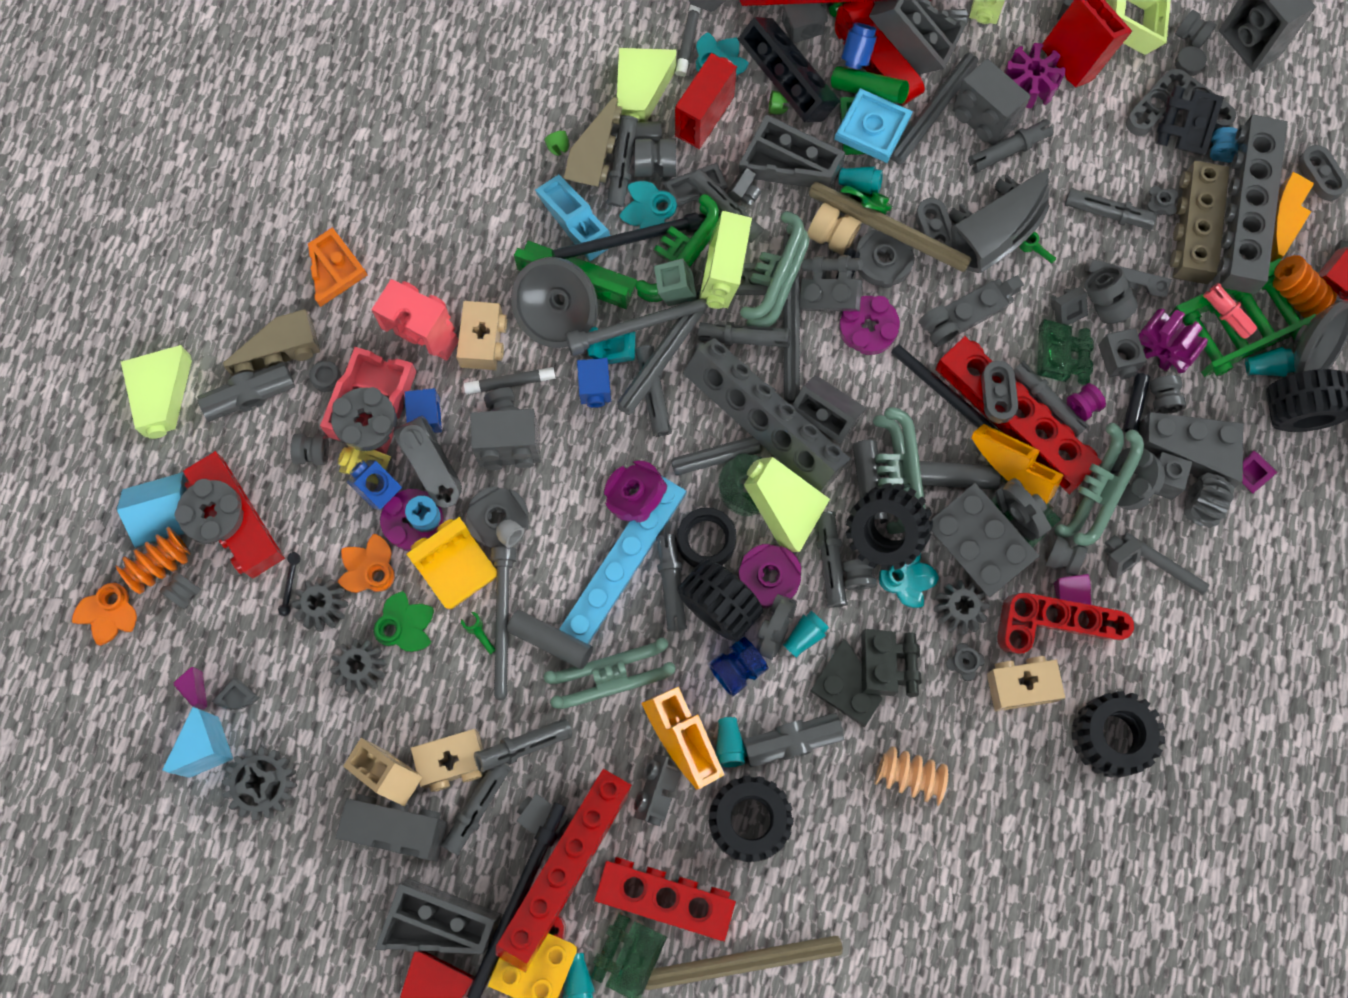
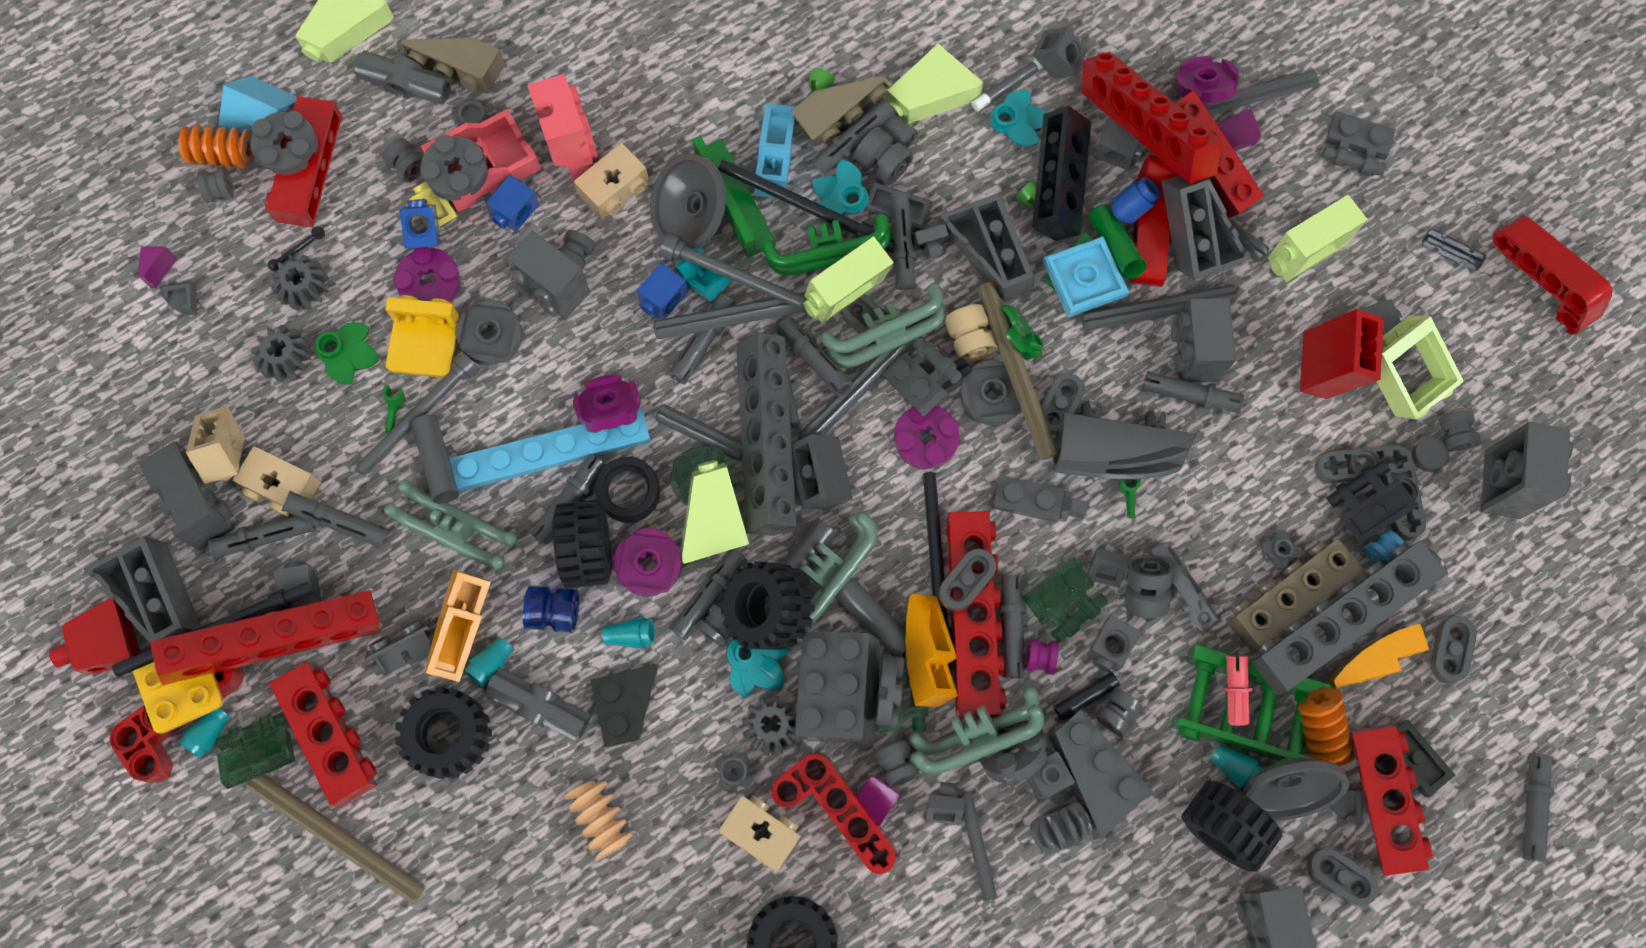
camera: 40 degrees right, 0 degrees up
(105, 617) = (150, 159): orange plate -> none
(198, 746) = (115, 307): medium azure slope -> none
(264, 798) = (134, 390): dark grey gear -> none
(332, 266) = (556, 36): orange wing -> none
(363, 565) = (362, 281): orange plate -> none
(426, 520) = (436, 286): dark azure wheel -> none
(429, 460) = (475, 243): dark grey piece -> none
(509, 380) = (602, 236): dark grey bar -> none
(509, 532) = (481, 350): light grey hinge -> none
(675, 282) = (795, 266): sand green panel -> none
(705, 100) = (965, 142): red brick -> none
(774, 631) = (604, 606): dark grey plate -> none
(862, 178) = (1037, 314): teal cone -> none
(880, 663) = (663, 709): pearl dark grey plate -> none
(939, 325) = (981, 486): dark grey wheel -> none
(1034, 74) = (1284, 357): magenta gear -> none
(1111, 209) = (1234, 528): dark grey pin -> none
(1172, 340) = (1163, 669): magenta gear -> none
(1256, 471) = (1133, 842): magenta slope -> none

